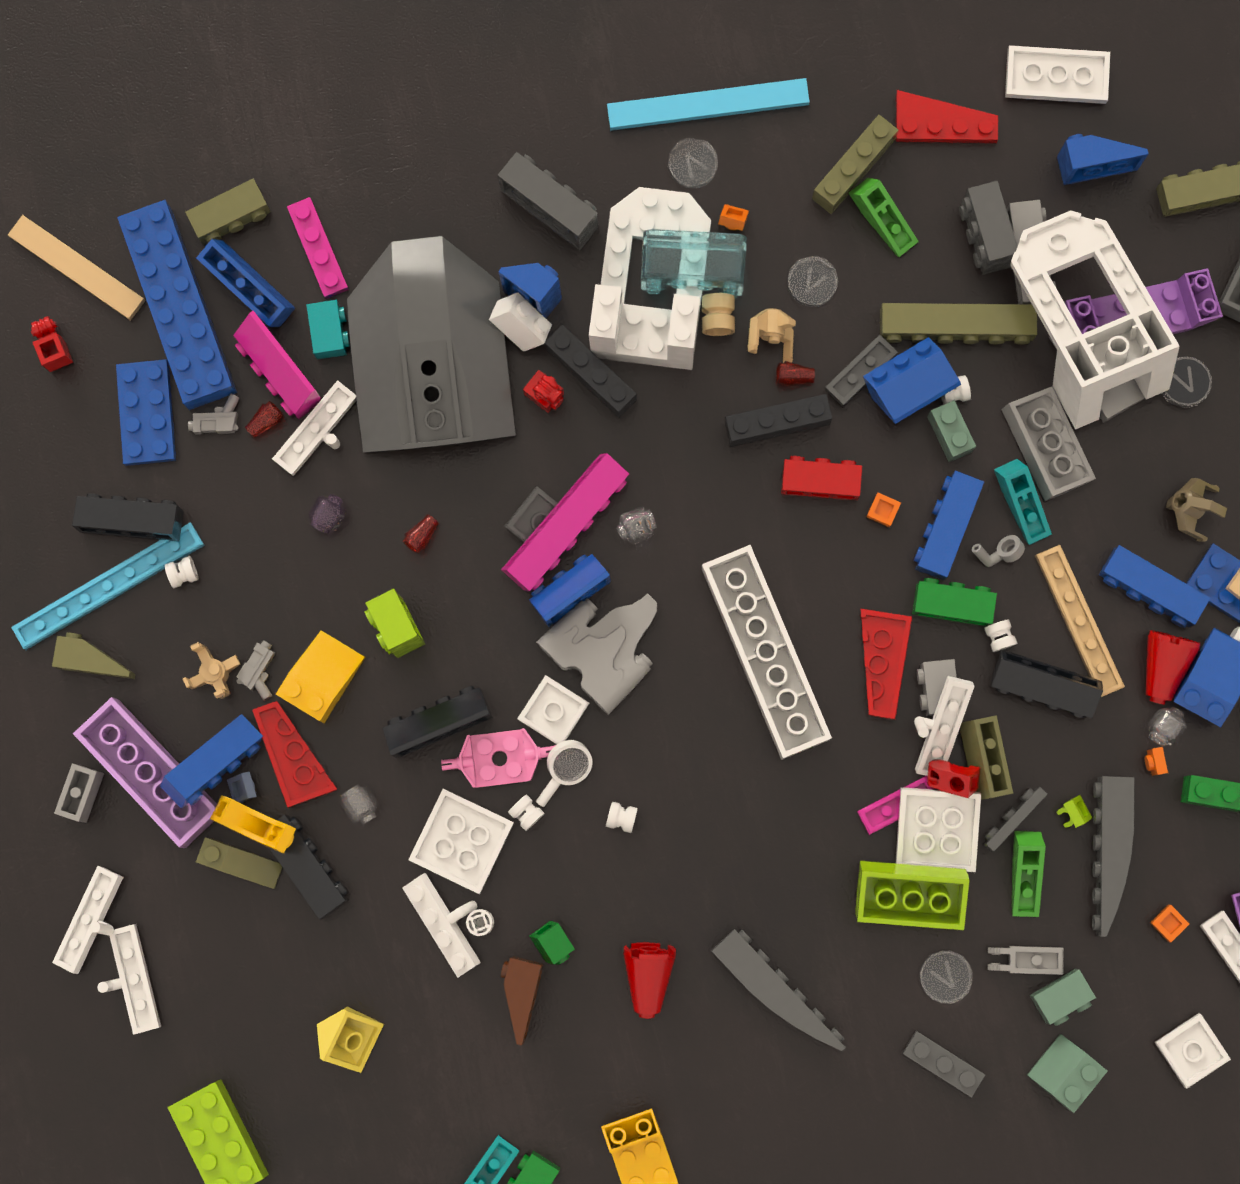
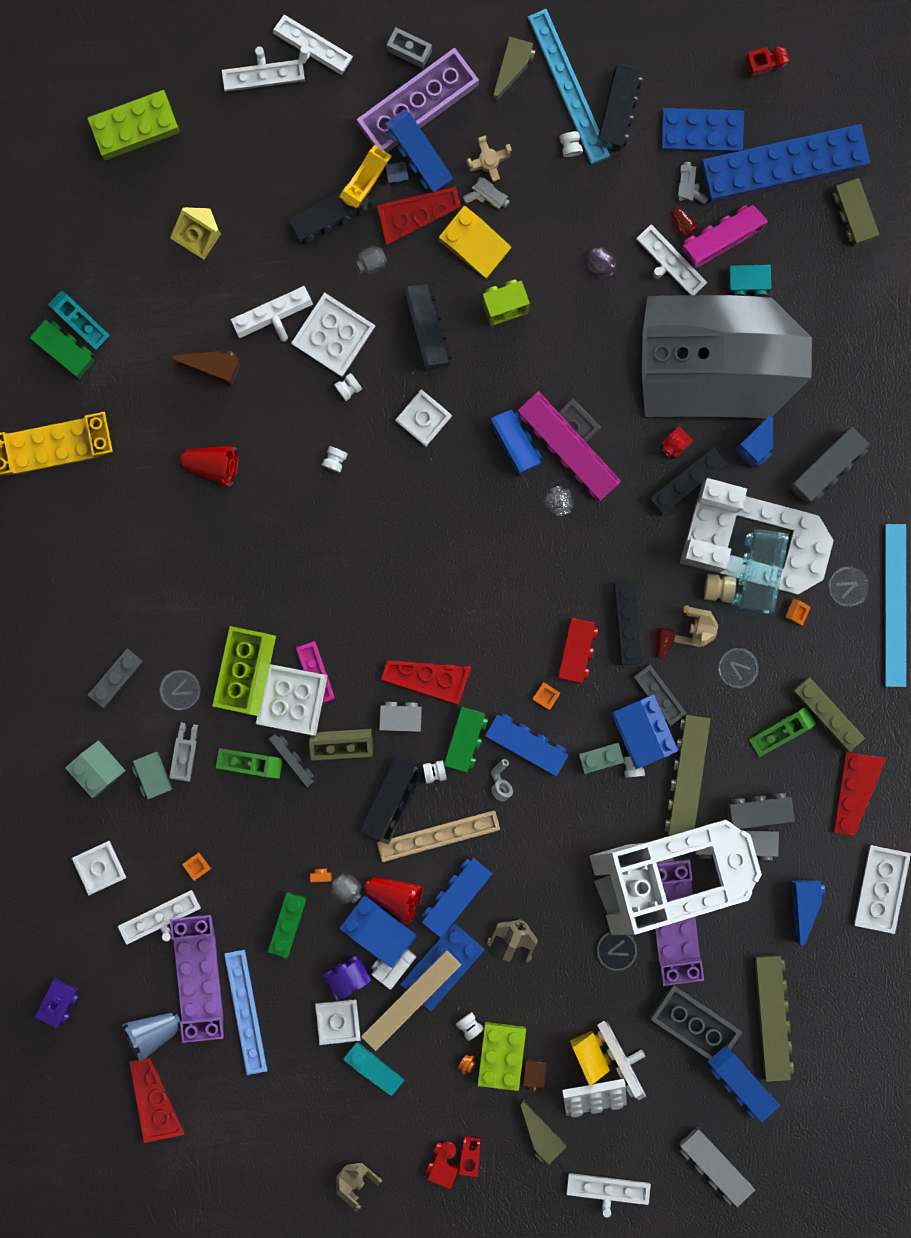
camera: 90 degrees right, 5 degrees up
(76, 267) = (827, 87): tan tile -> none
(239, 862) = (340, 163): olive slope -> none
(245, 283) = (795, 219): blue brick -> none
(317, 248) = (818, 279): dark pink plate -> none
(419, 535) = (576, 333): clear red cone -> none
(477, 755) = (388, 355): bright pink plate -> none
(483, 920) = (272, 343): white wheel -> none
(520, 322) = (732, 430): white brick -> none
(552, 943) = (246, 393): green brick -> none
(568, 765) = (380, 423): piece -> none
(603, 651) = (464, 462): light grey rock -> none
(766, 652) = (446, 587): white brick -> none
(771, 988) = (189, 555): dark grey slope -> none
(945, 723) = (368, 713): white plate -> none
(953, 778) = (328, 716): red leg -> none
(1023, 500) = (538, 806): teal slope -> none
(1048, 443) = (581, 834): light grey slope -> none
(1077, 811) = (291, 808): lime tile -> none
(1113, 846) = (261, 832): dark grey slope -> none

